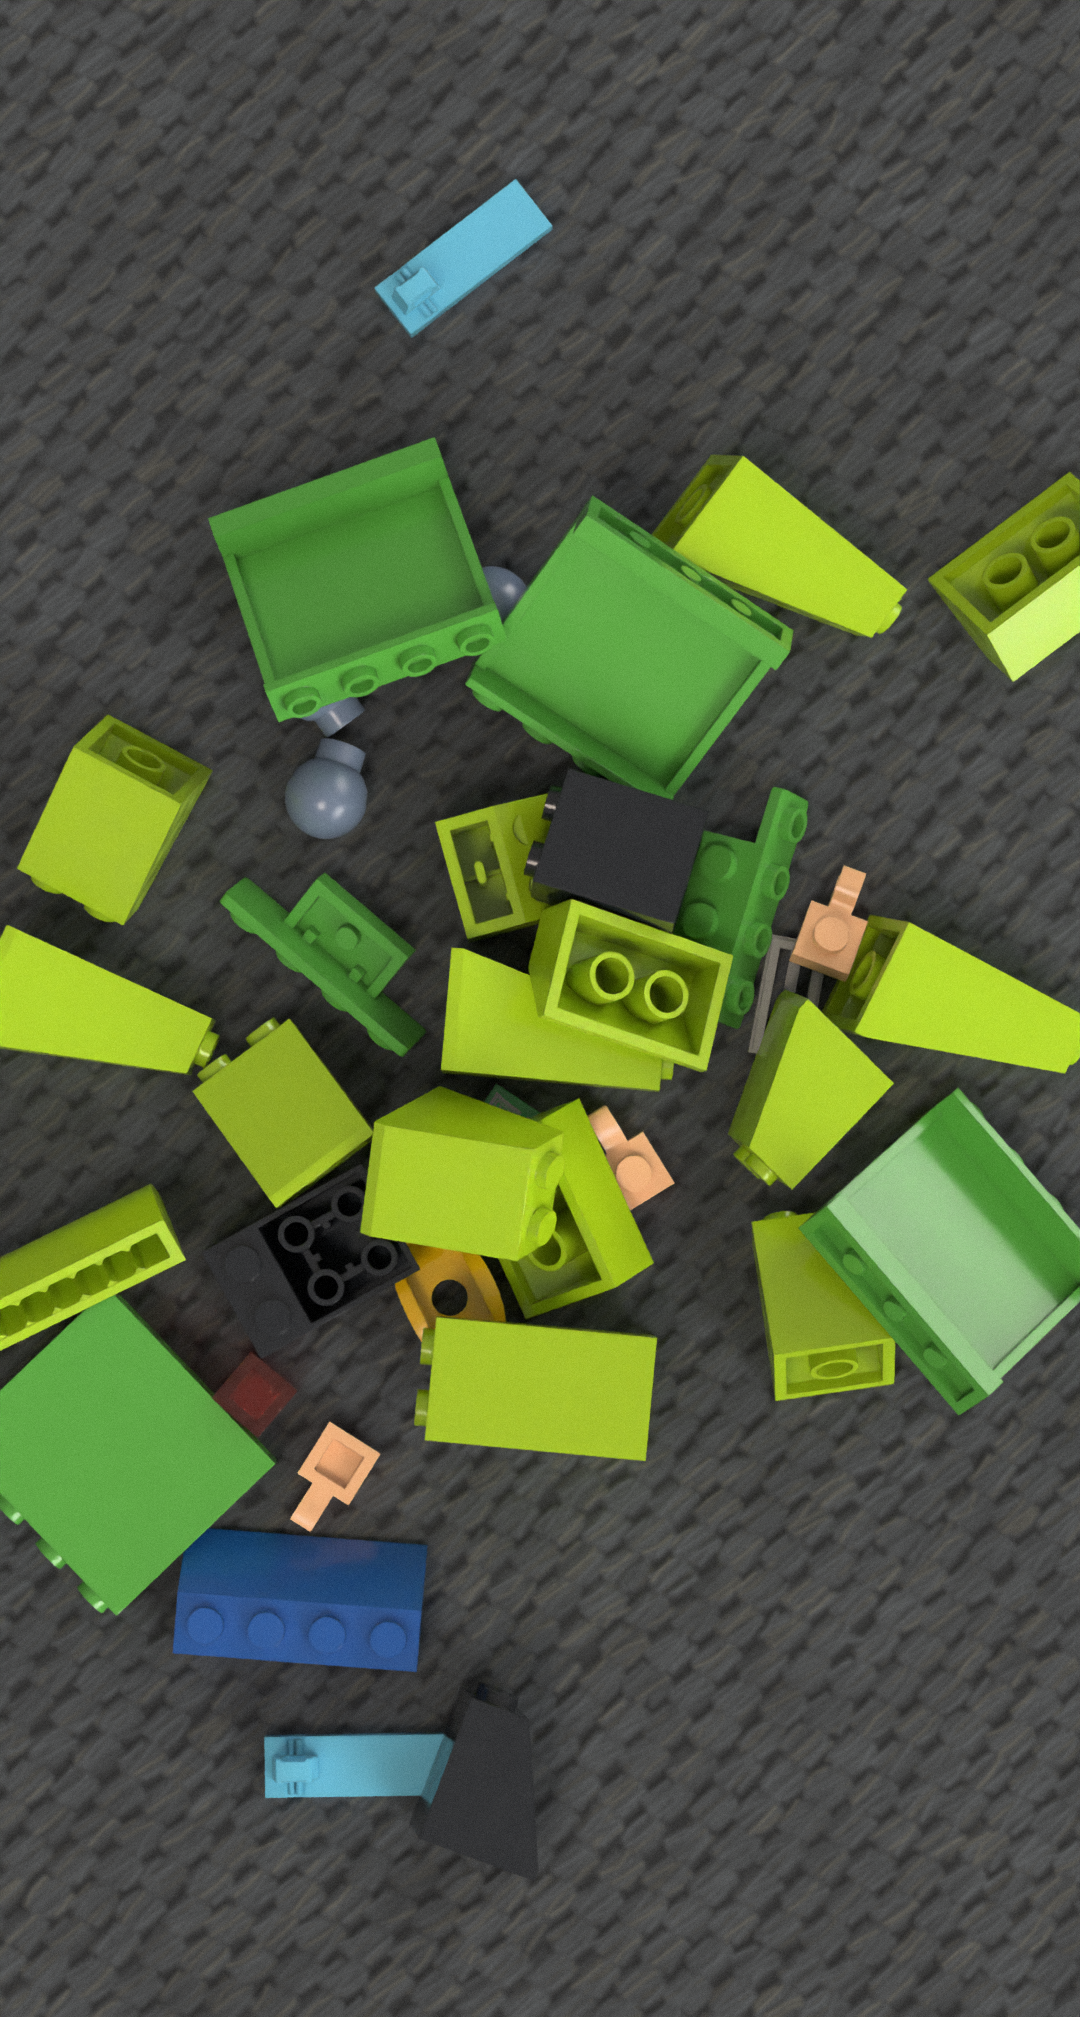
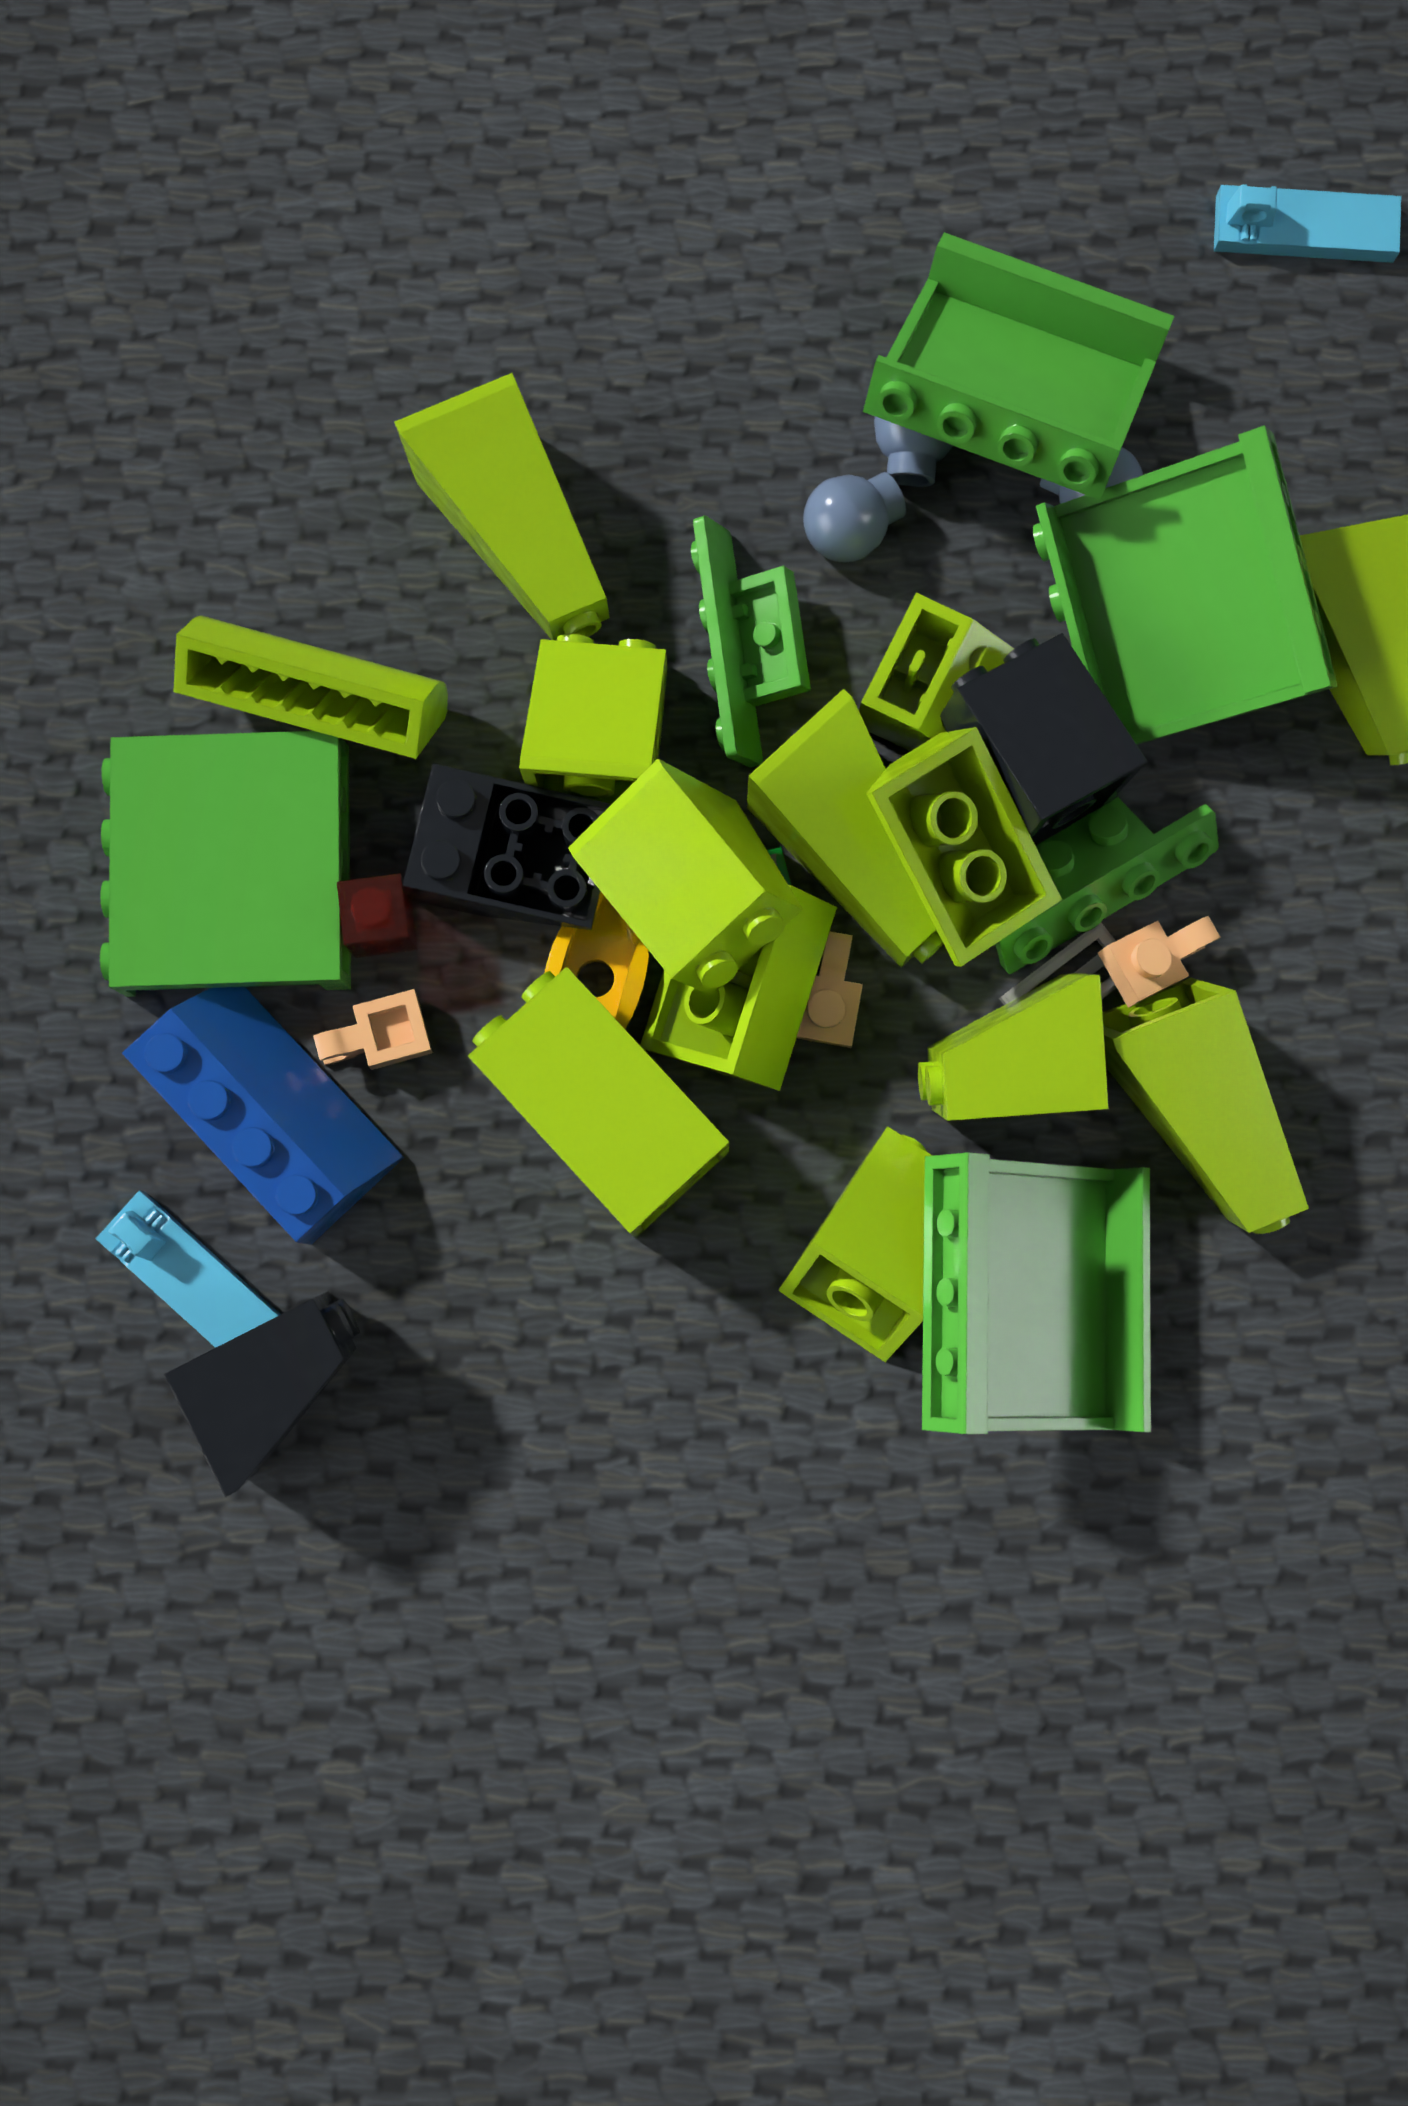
camera: 45 degrees right, 5 degrees down
(112, 819) = (666, 392): lime slope -> none

